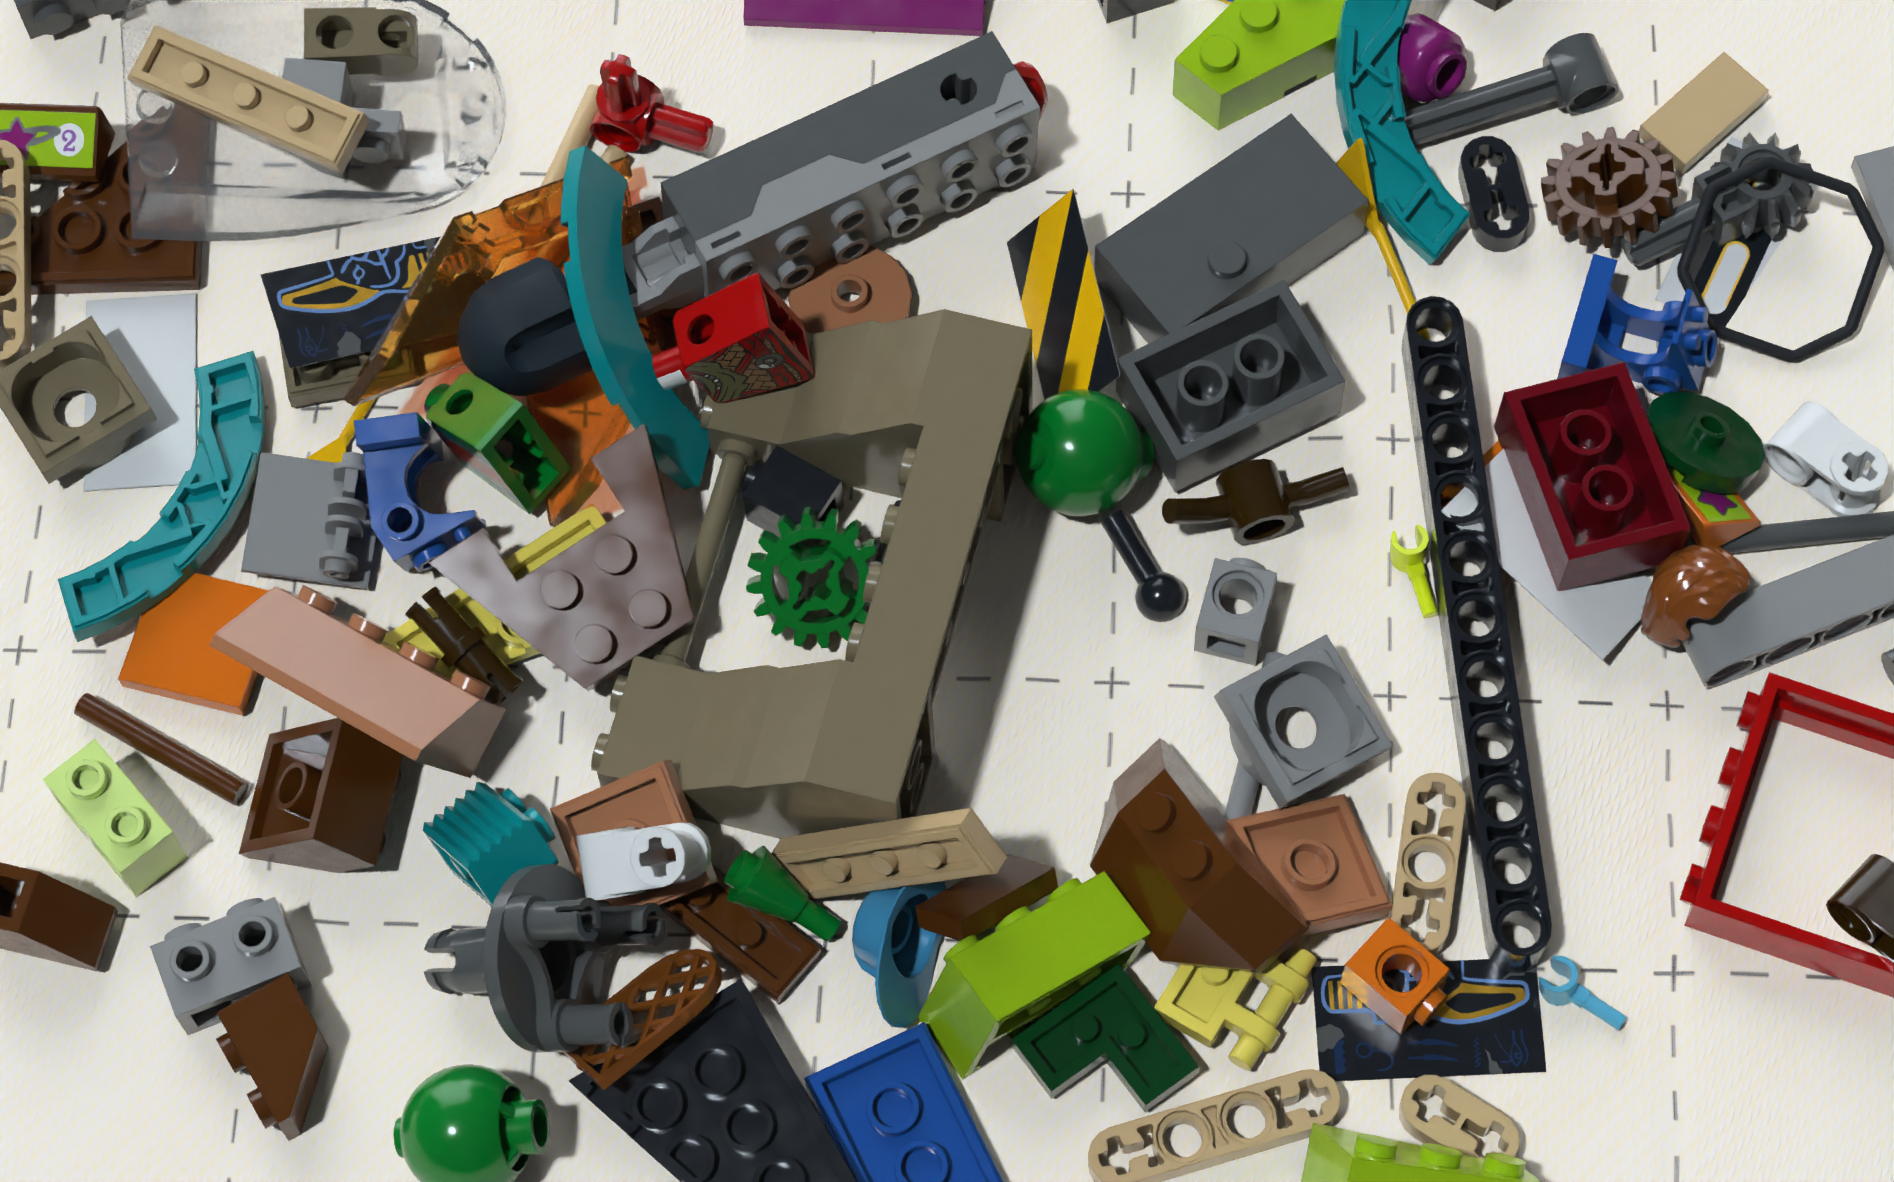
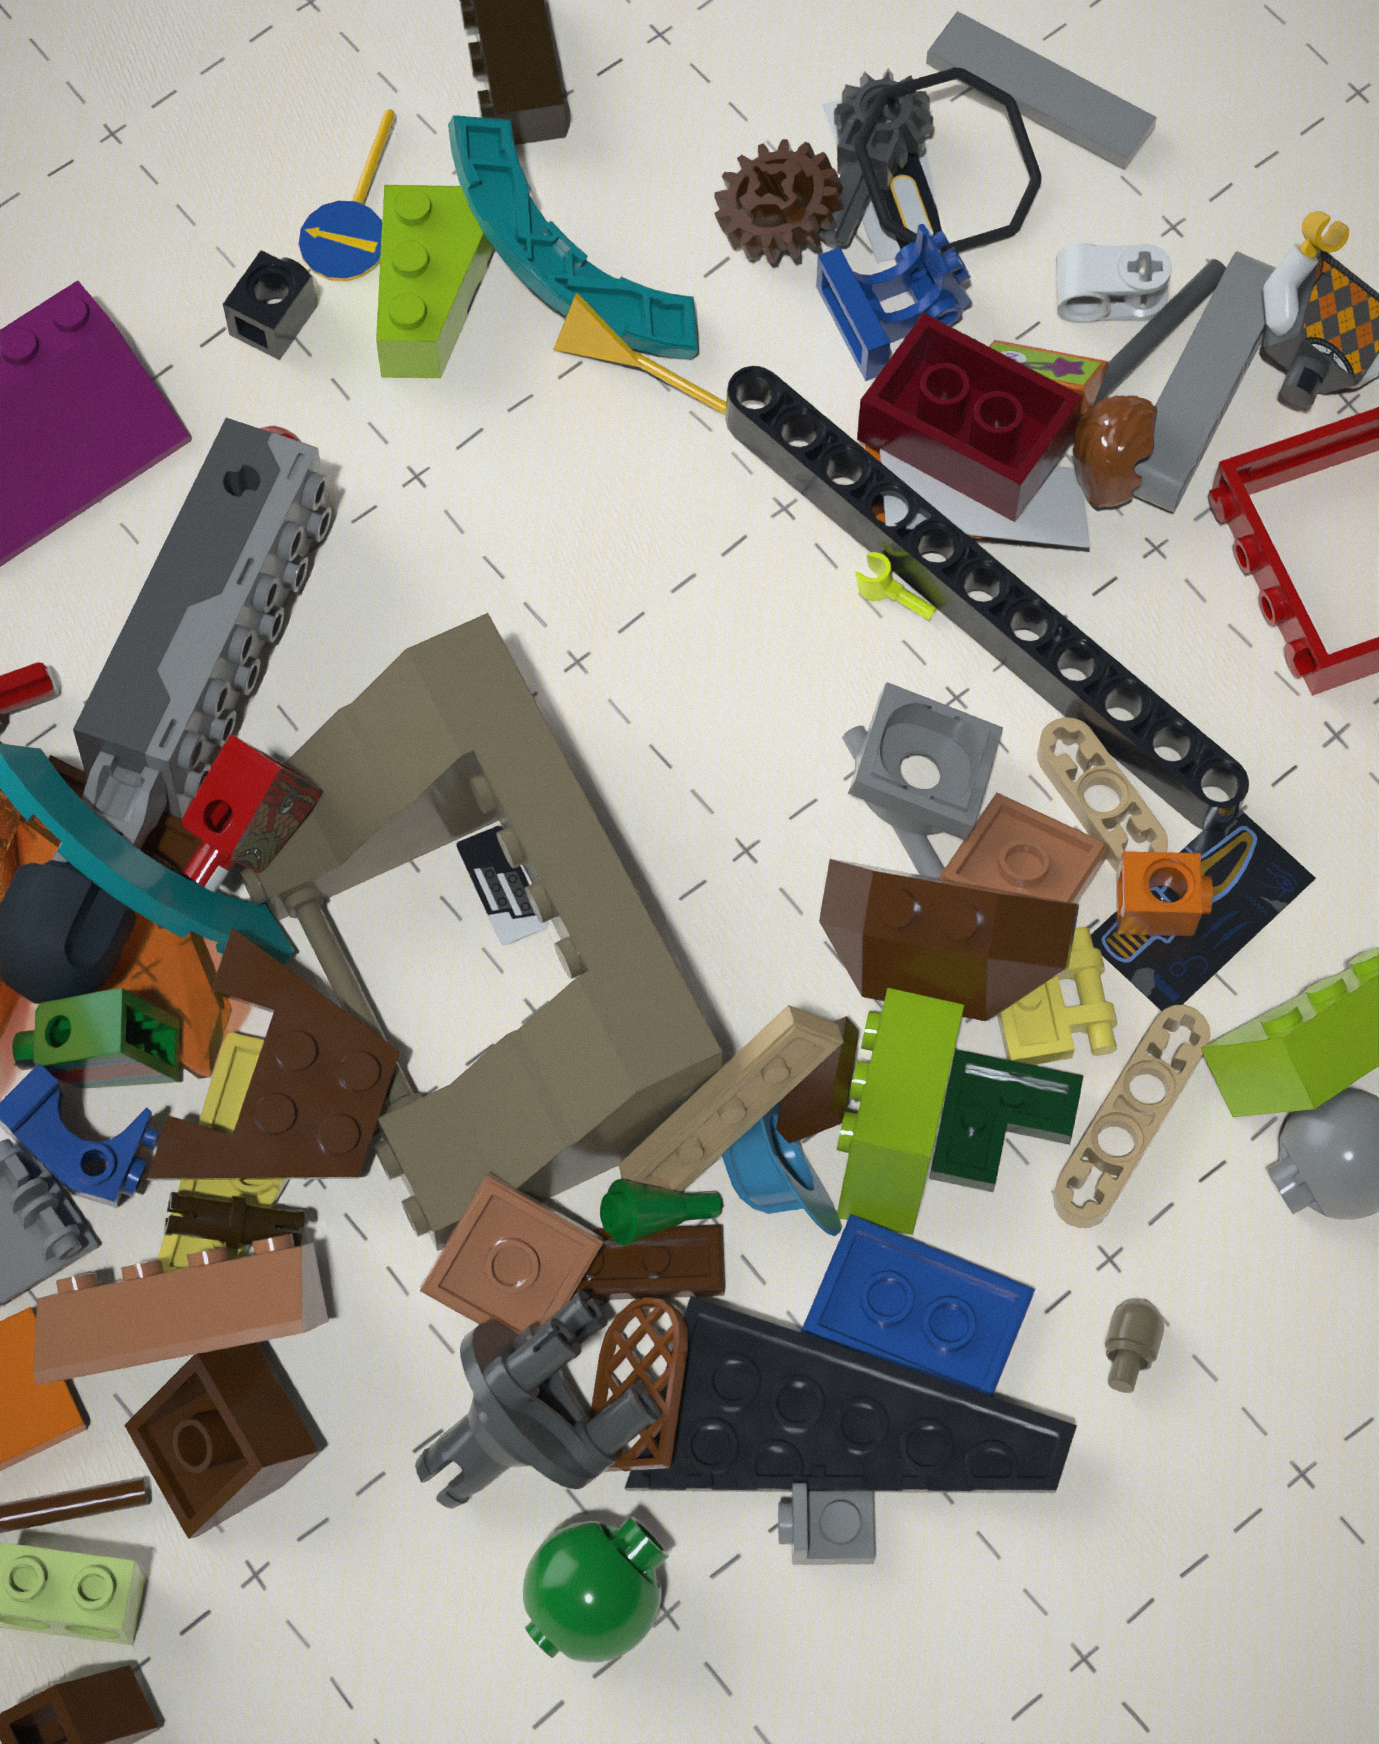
camera: 45 degrees left, 0 degrees up
(226, 960) = (269, 1628): light grey brick -> none
(280, 1048) = (371, 1659): reddish brown slope -> none
(490, 839) = (400, 1355): teal brick -> none
(636, 860) = (529, 1275): white piece -> none
(786, 487) = (379, 904): black brick -> none
(794, 563) = (485, 949): green gear -> none
(873, 275) = (293, 688): nougat plate -> none
(1063, 301) = (448, 582): sticker -> none
(1082, 452) = (583, 688): green brick -> none
(1158, 593) = (721, 756): black bar -> none
(1229, 634) = (798, 744): light grey brick -> none
(1230, 385) = (639, 556): dark grey brick -> none
(1232, 232) = (535, 449): dark grey brick -> none
(1255, 500) = (735, 627): dark brown piece -> none
(1429, 59) = (565, 200): magenta head -> none
(1460, 1107) = (1292, 952): tan beam -> none
(1506, 191) = (697, 266): black beam -> none
(1571, 76) = (671, 143): dark grey axle -> none
(1577, 994) = (1288, 802): medium azure hand -> none
(1704, 111) = (789, 95): tan tile -> none
(1705, 442) = (1022, 330): dark green plate -> none

